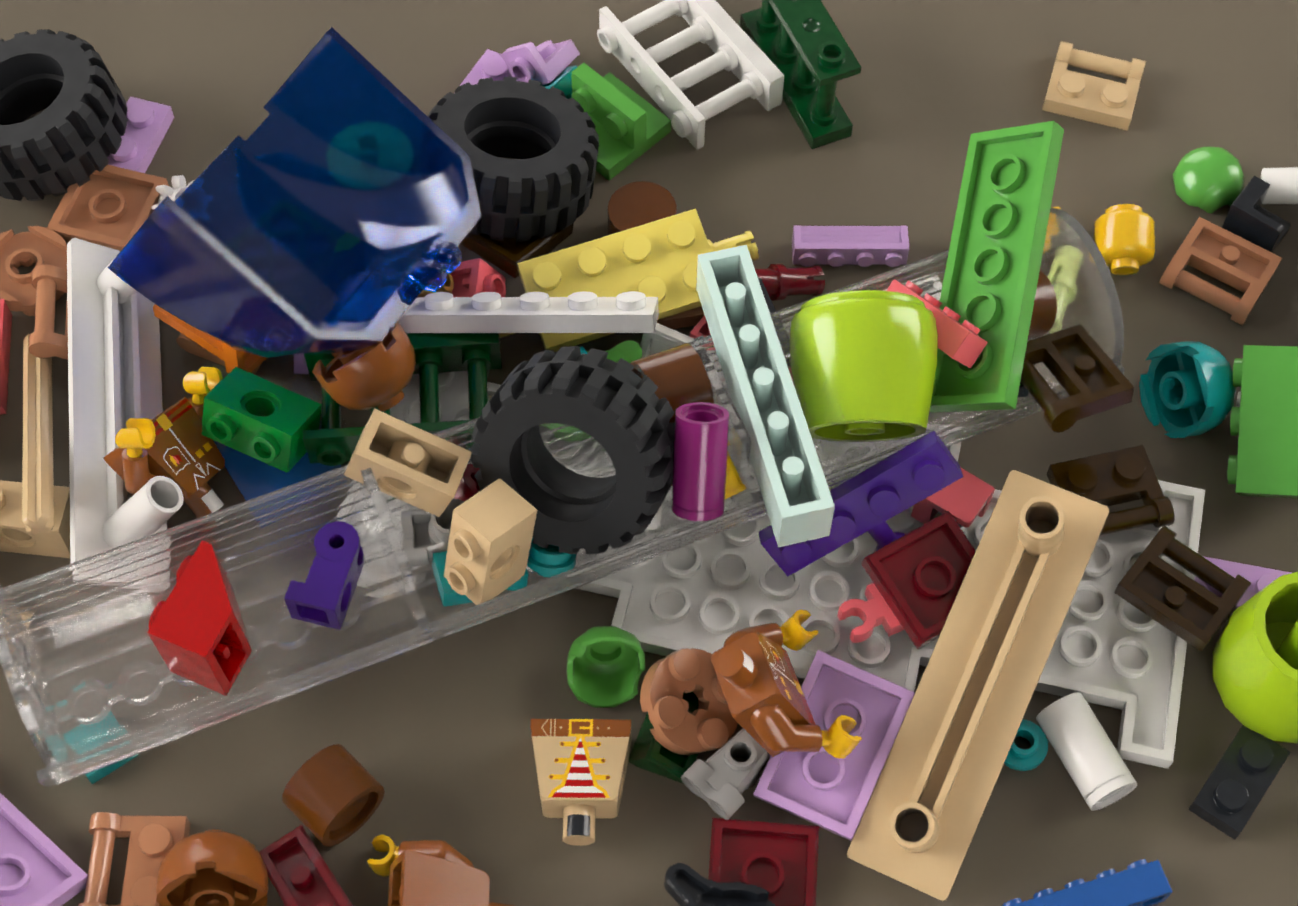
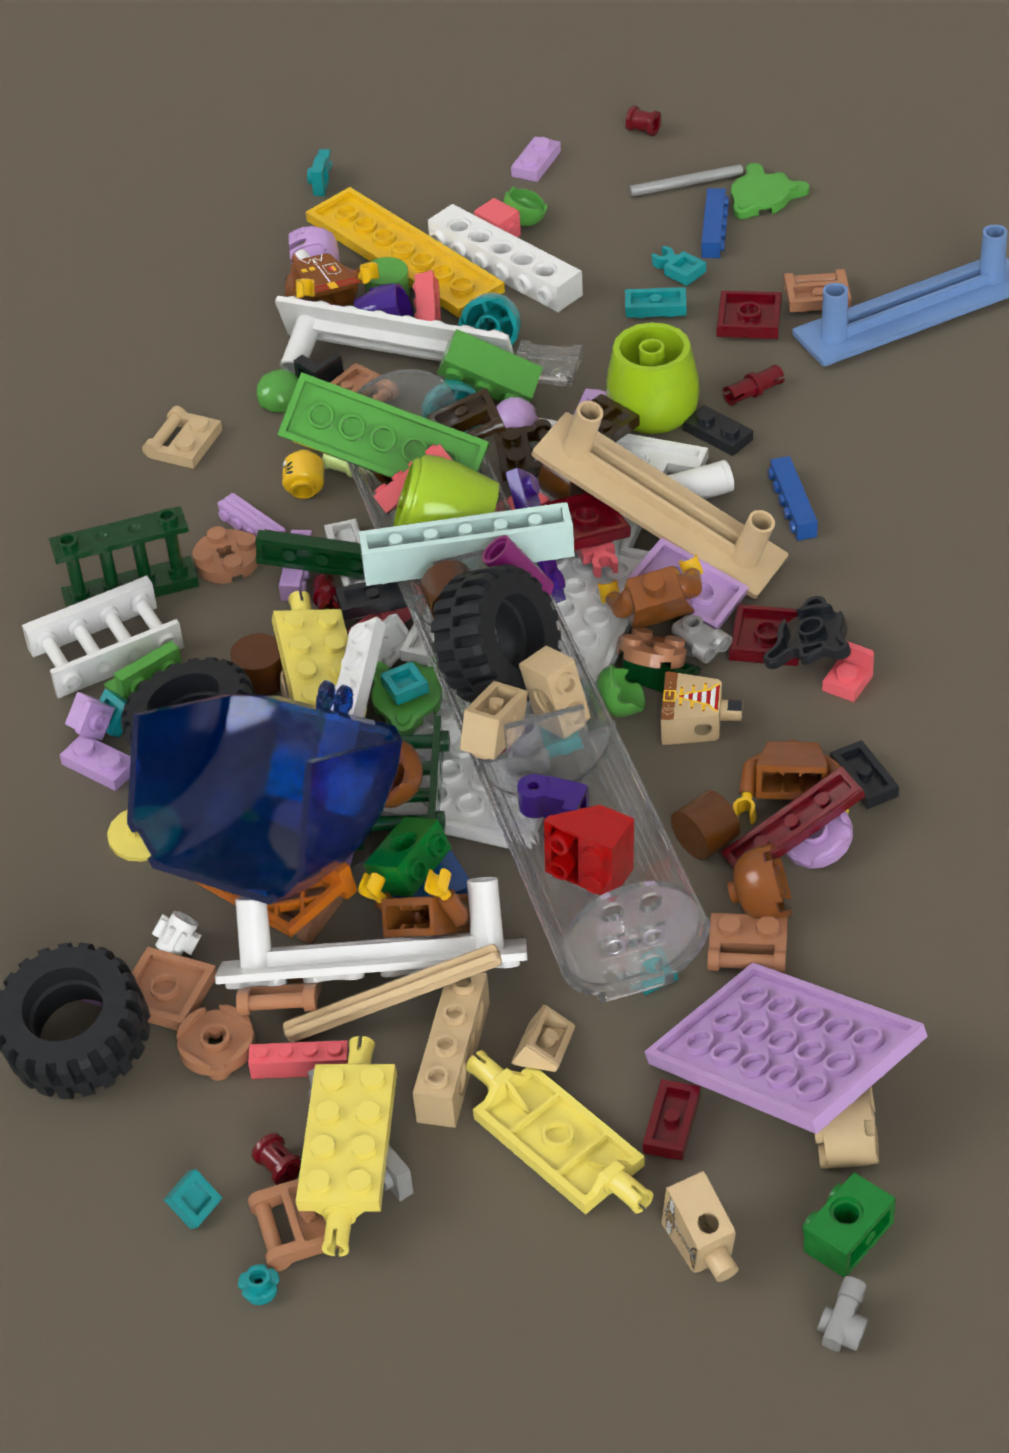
camera: 80 degrees left, 15 degrees down
(839, 232) = (309, 553): none -> dark green fence
(870, 145) = (239, 552): none -> nougat plate
(927, 186) = (245, 516): none -> lavender piece
(1191, 473) = (517, 412): none -> lavender hair

